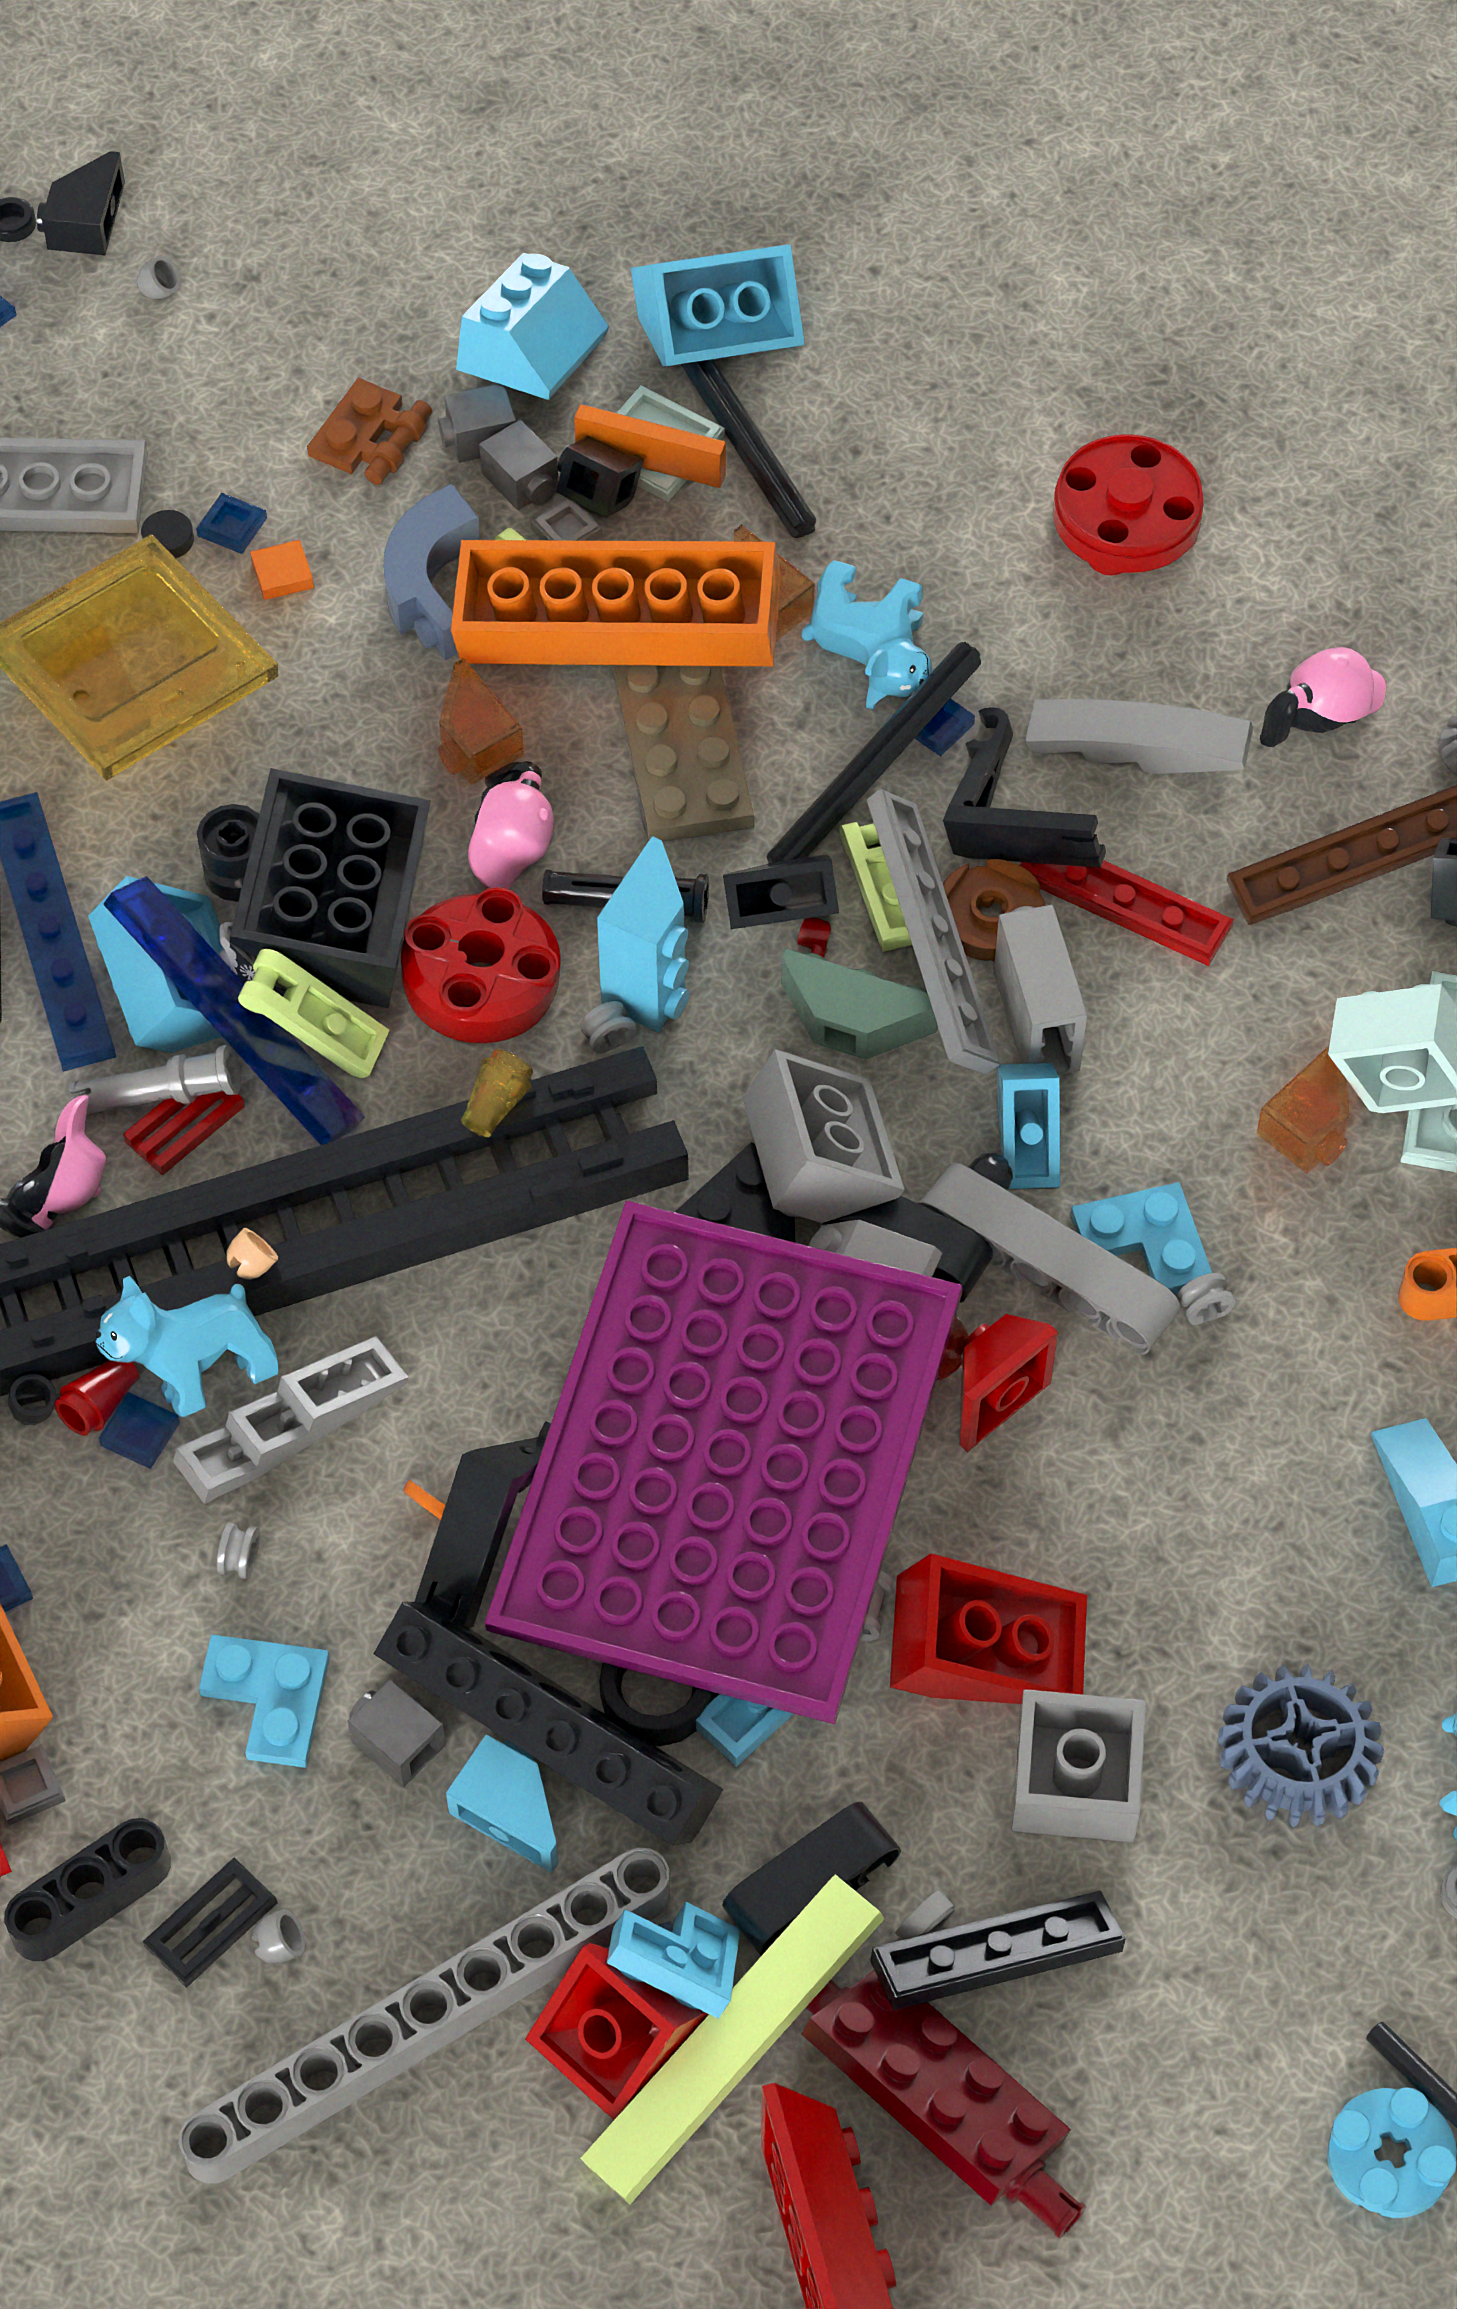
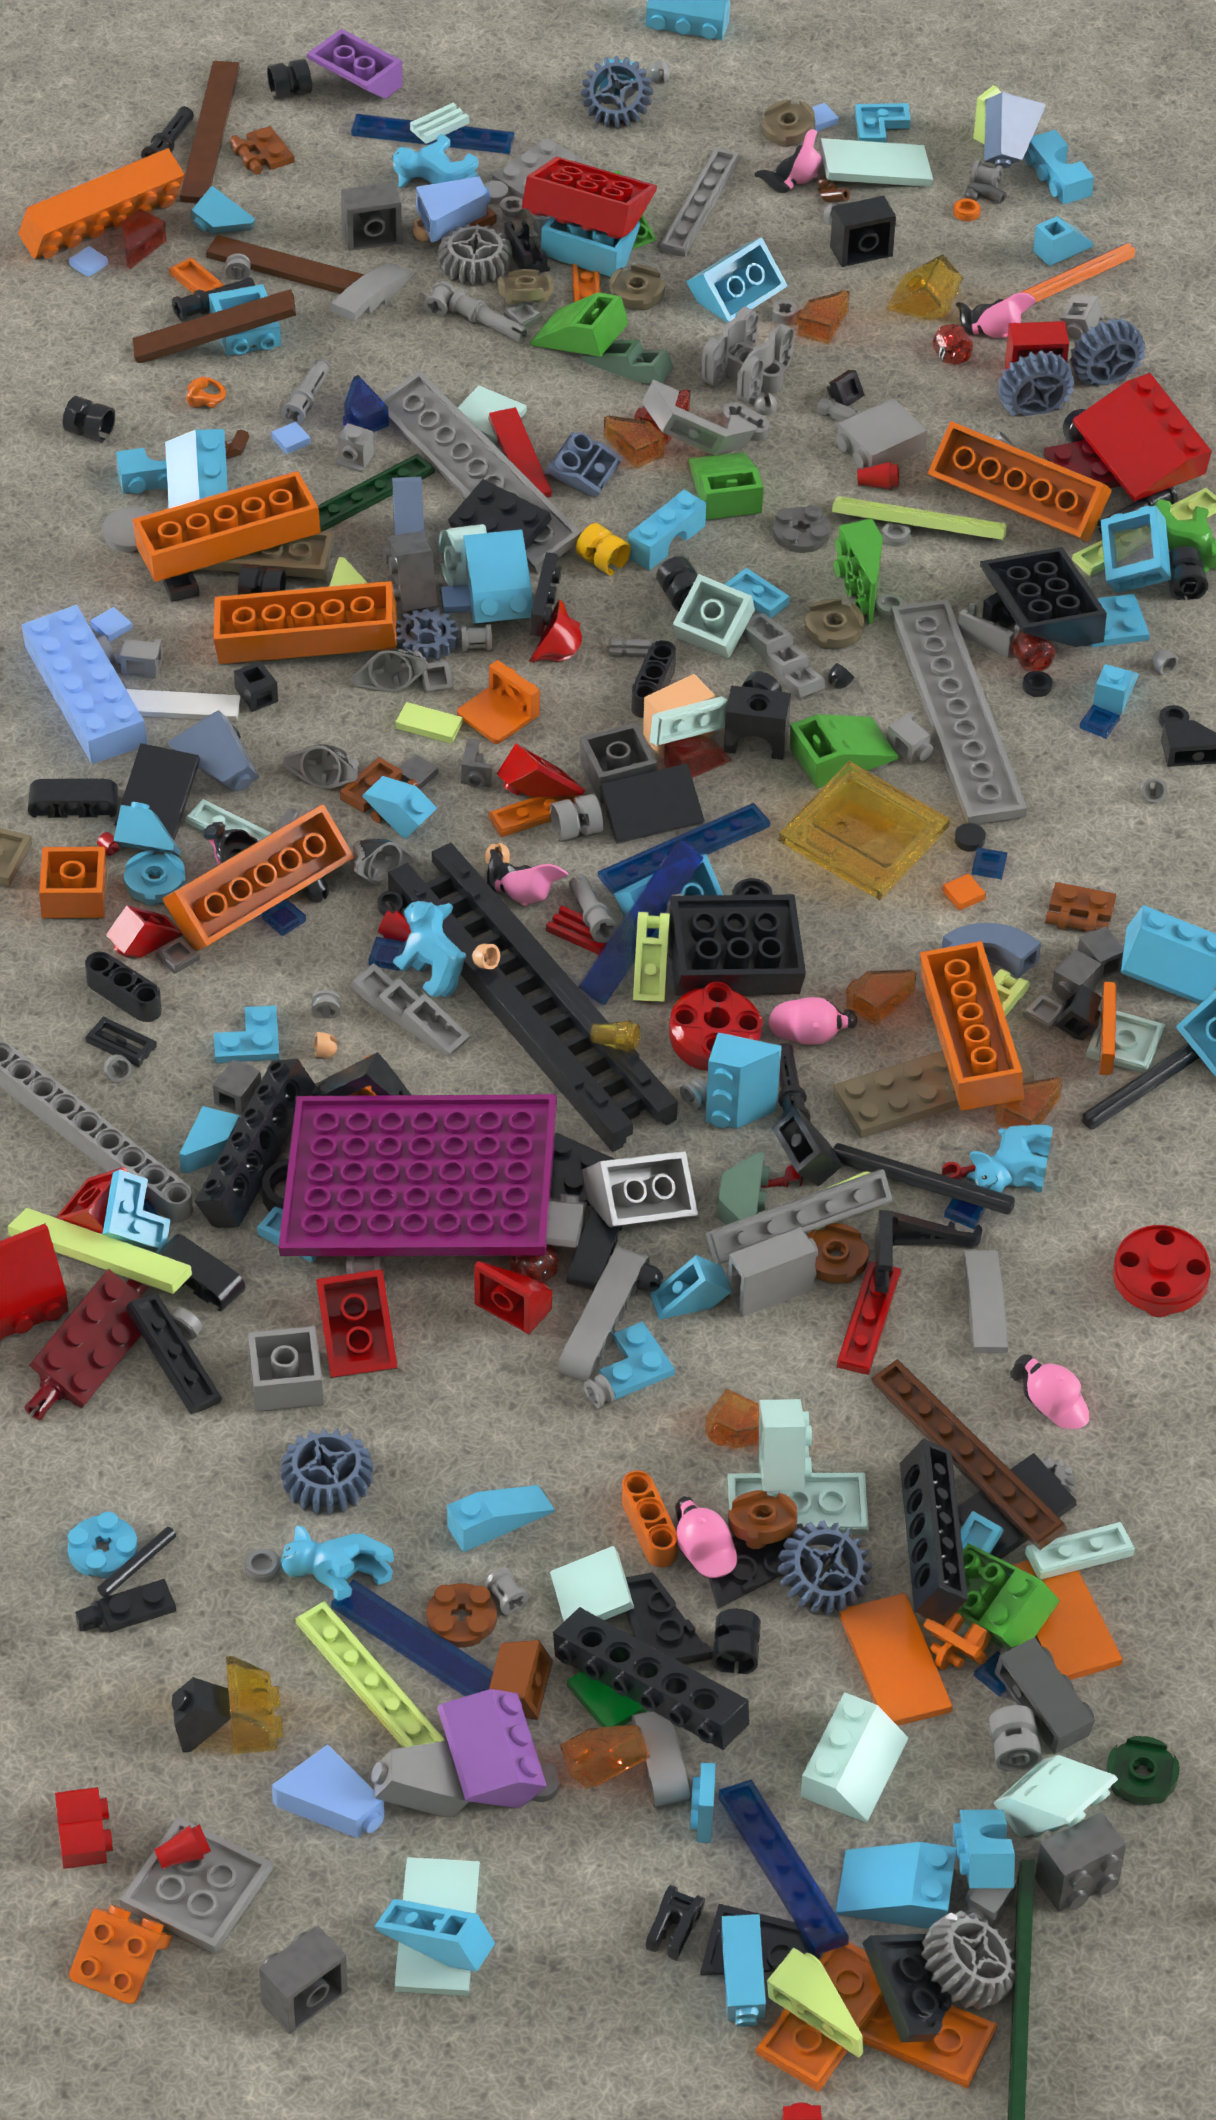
camera: 75 degrees right, 10 degrees down
(331, 1565) = (325, 1044): none -> light nougat hinge
(860, 709) = (953, 1167): none -> red hand

